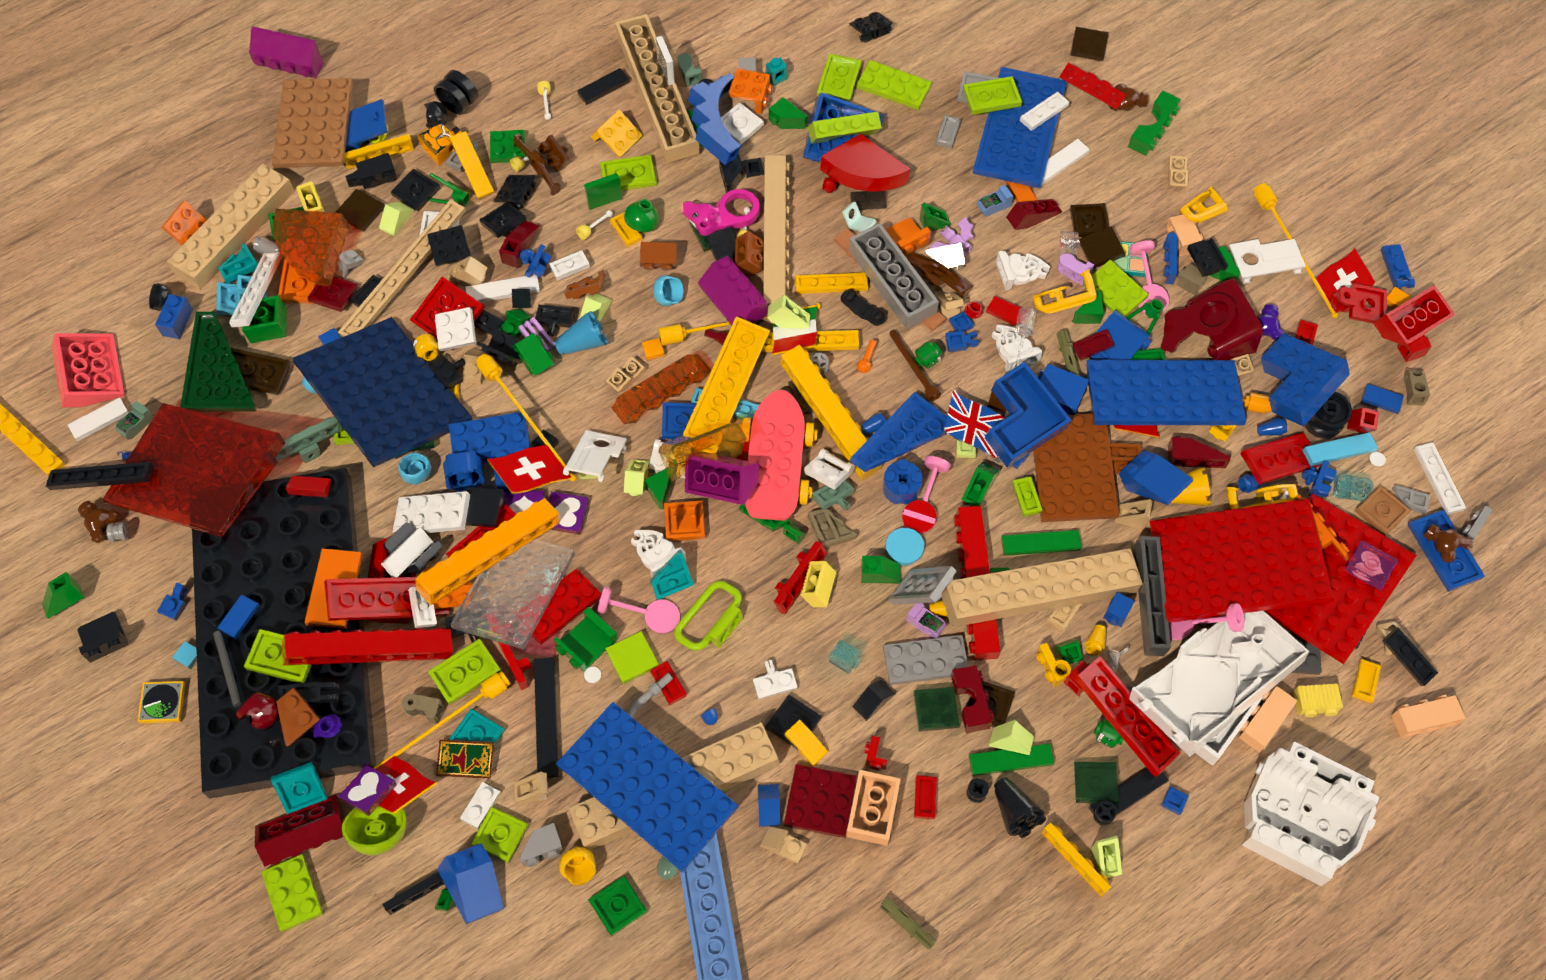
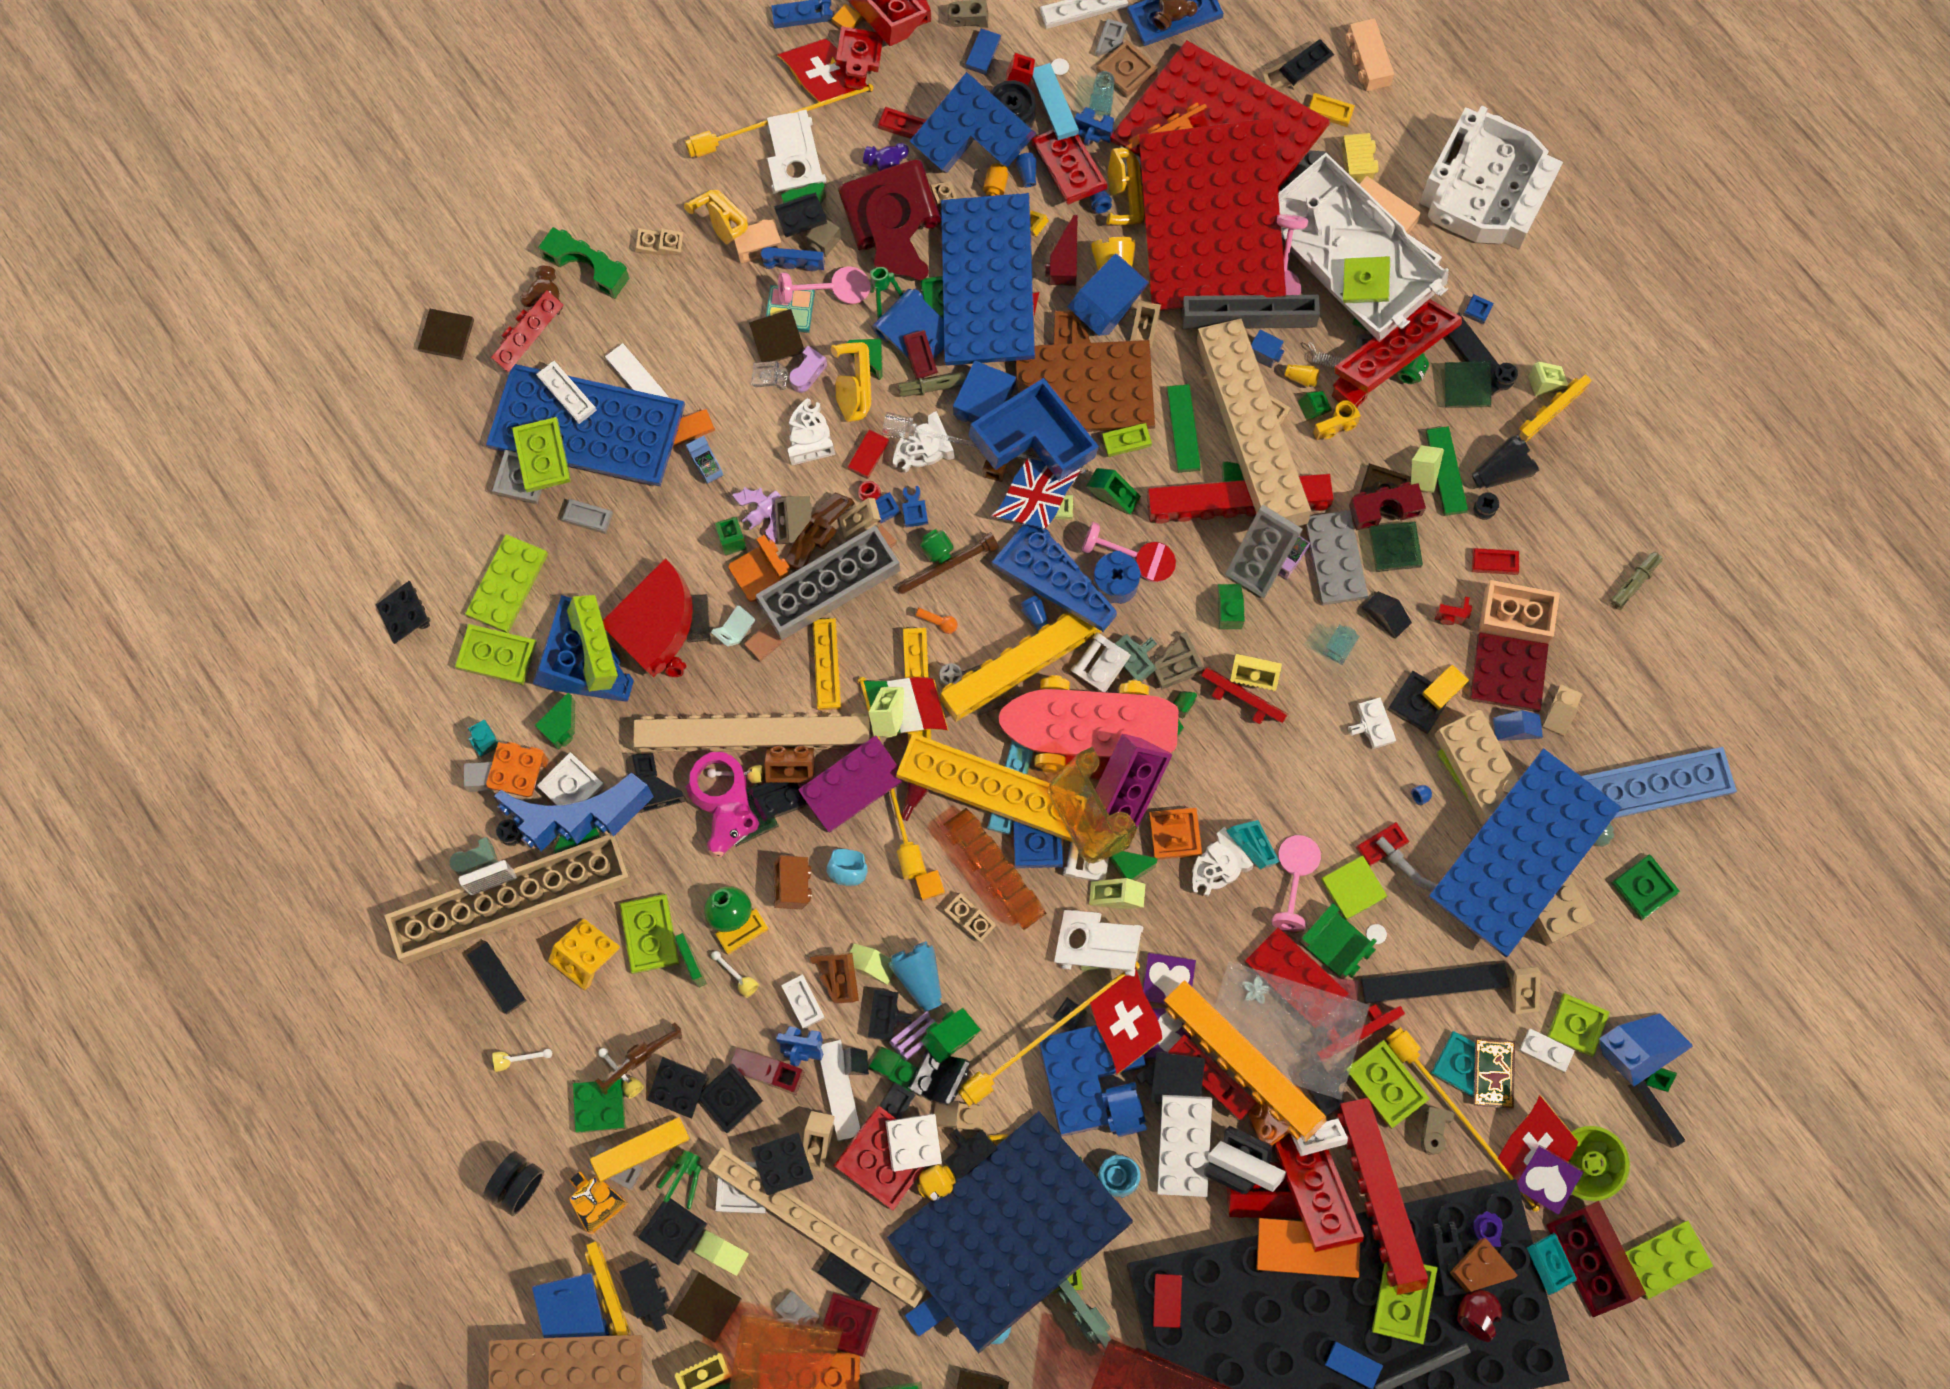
camera: 90 degrees left, 10 degrees up
(435, 114) = (551, 1212): black hair -> none
(541, 845) = (1589, 974): light grey slope -> none
(556, 153) = (619, 1033): reddish brown hips -> none
(577, 865) = (1610, 930): yellow hair -> none
(722, 628) = (1308, 781): lime bar -> none
(862, 309) = (868, 624): black piece -> none
(904, 546) = (1195, 578): medium azure tile -> none
(1031, 213) = (723, 415): dark red slope -> none
(1089, 218) = (730, 350): dark brown tile -> none
(1118, 289) = (837, 323): lime plate -> none
(1185, 683) = (1366, 279): none -> lime plate
(1371, 565) = (1208, 84): clear pink tile -> none

